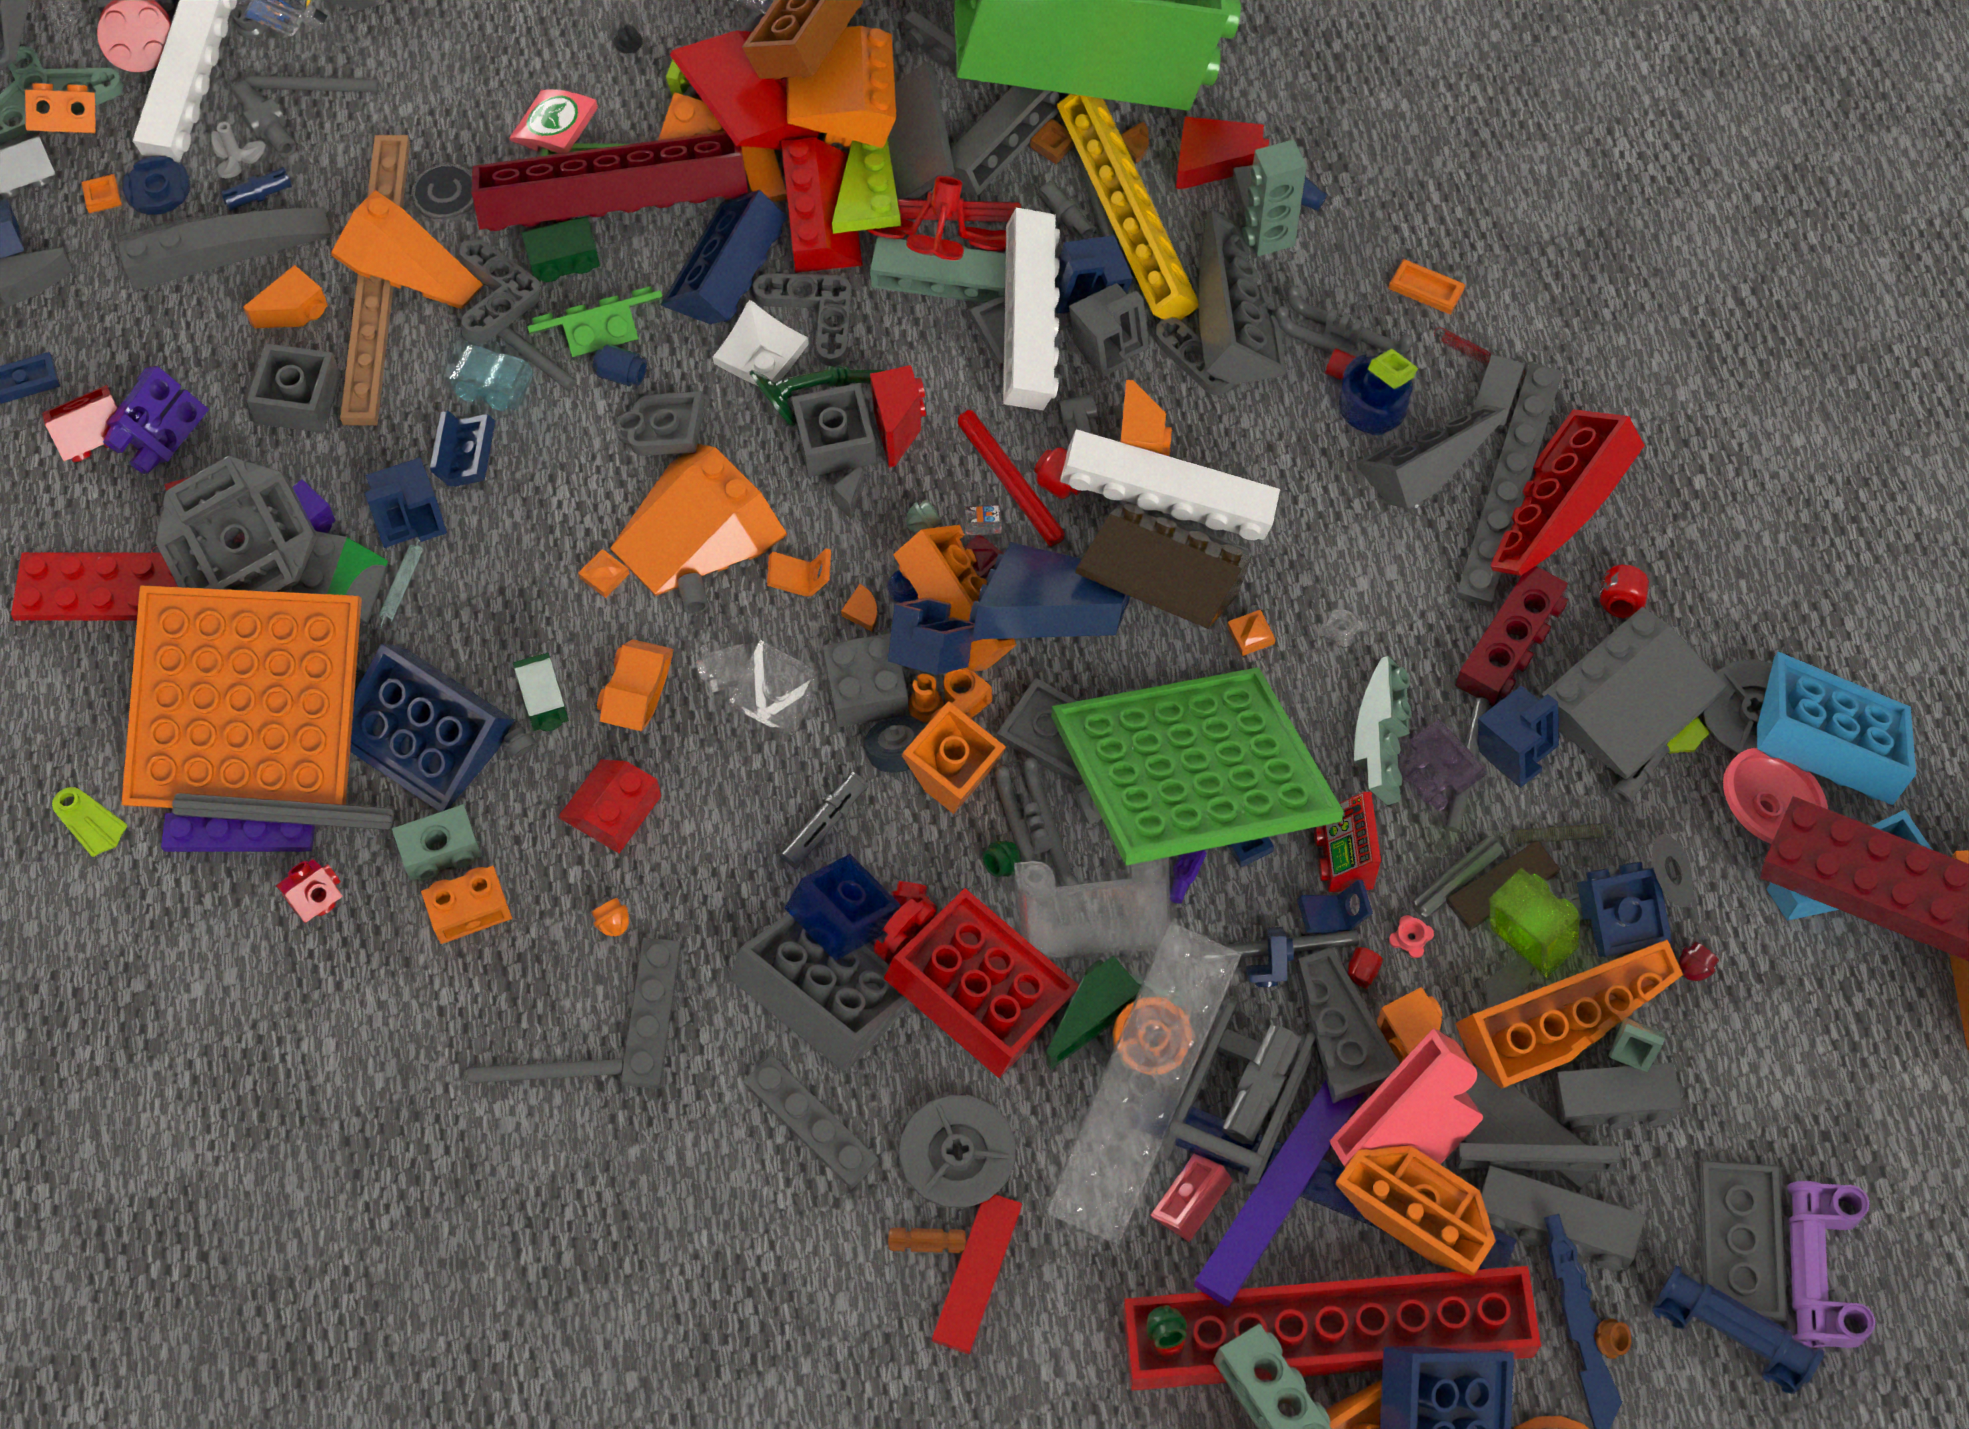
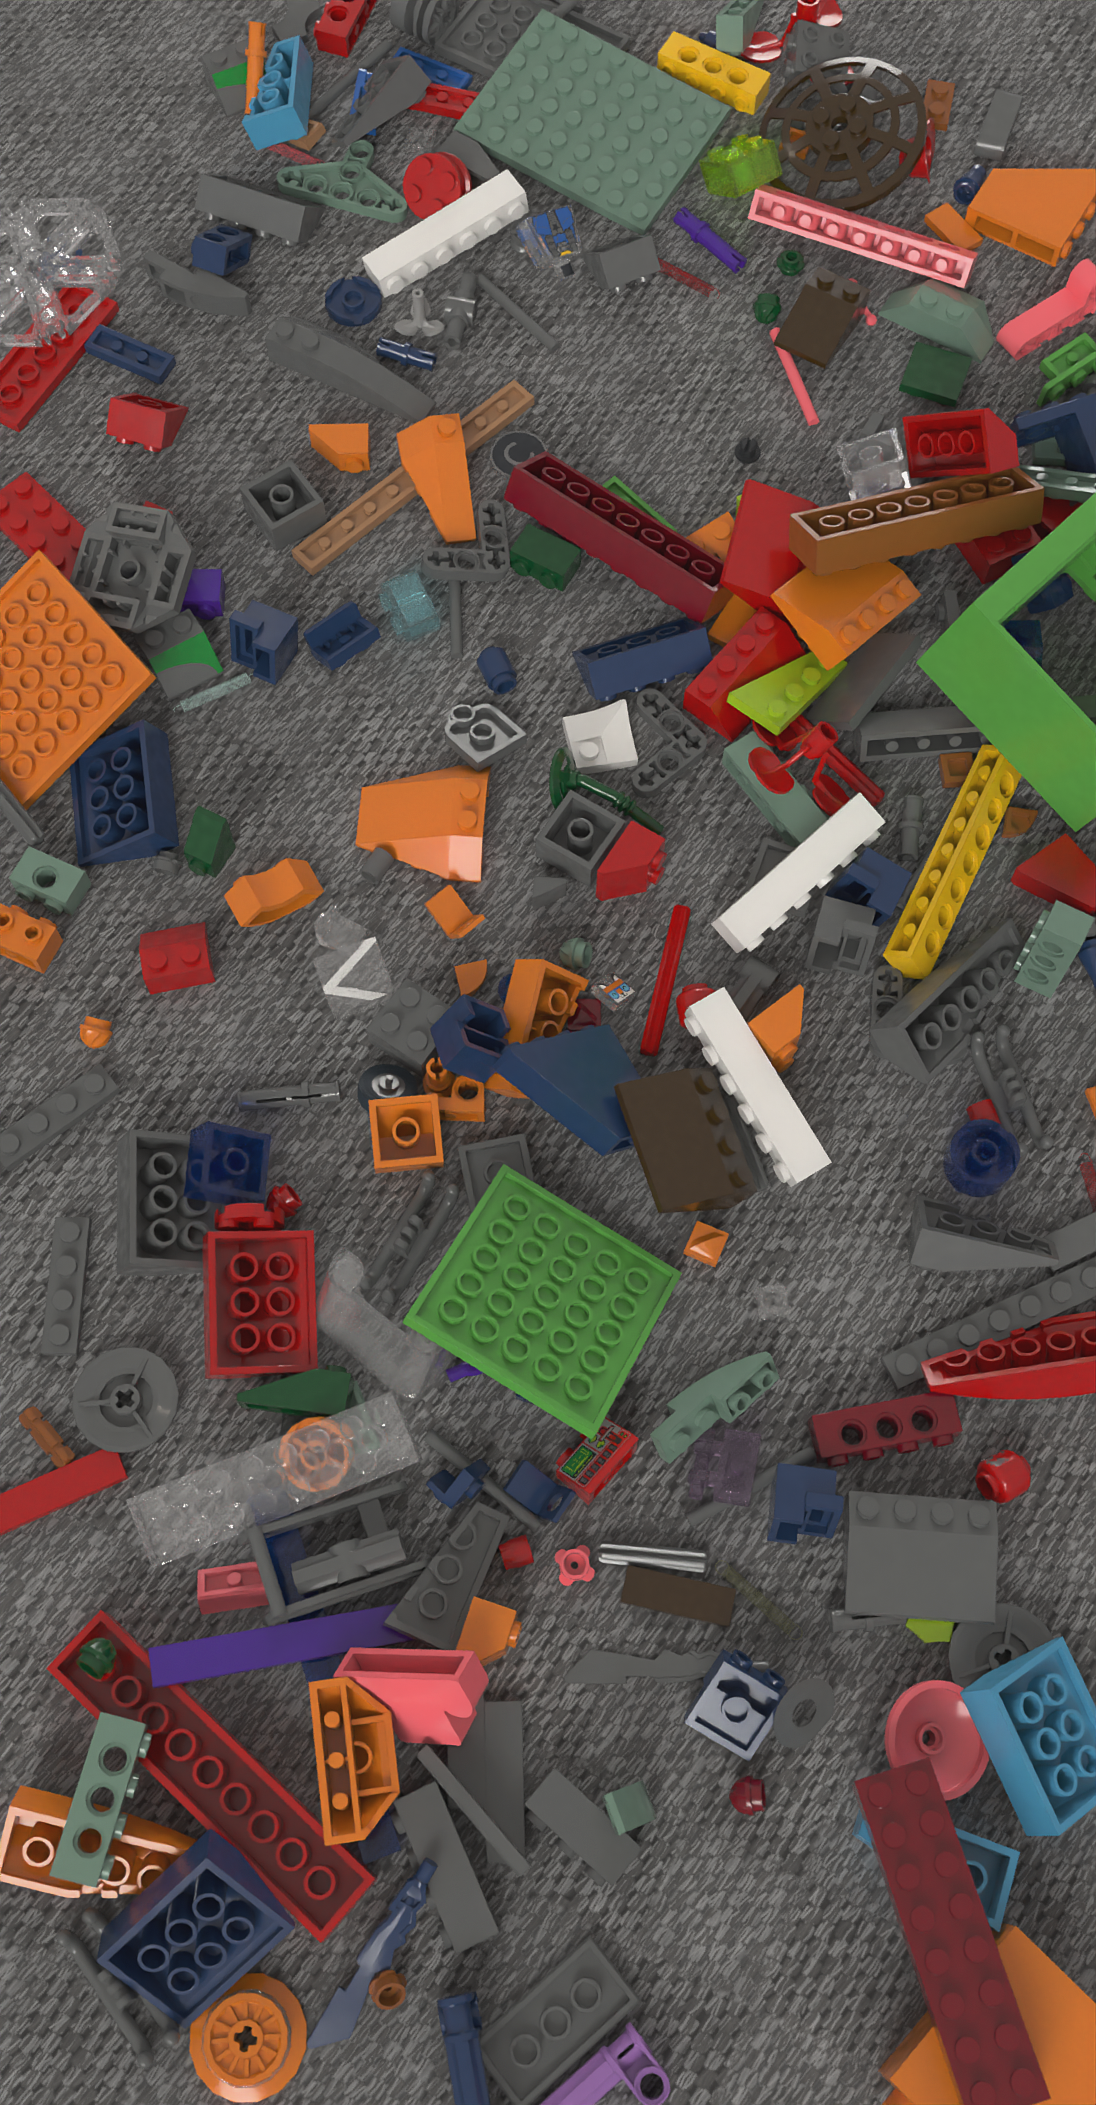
camera: 45 degrees right, 5 degrees up
(60, 116) = (340, 201): orange brick -> none
(101, 193) = (316, 279): orange tile -> none
(154, 419) = (169, 451): dark purple hips -> none
(554, 121) = (638, 467): slope -> none
(598, 326) = (513, 632): bright green bracket -> none
(603, 573) = (339, 800): orange tile -> none
(1000, 858) = (369, 1234): dark green plate -> none
(1393, 368) = (1002, 1152): lime tile -> none
(1535, 921) = (655, 1647): clear neon green brick -> none
(1564, 1017) = (606, 1733): orange wedge -> none

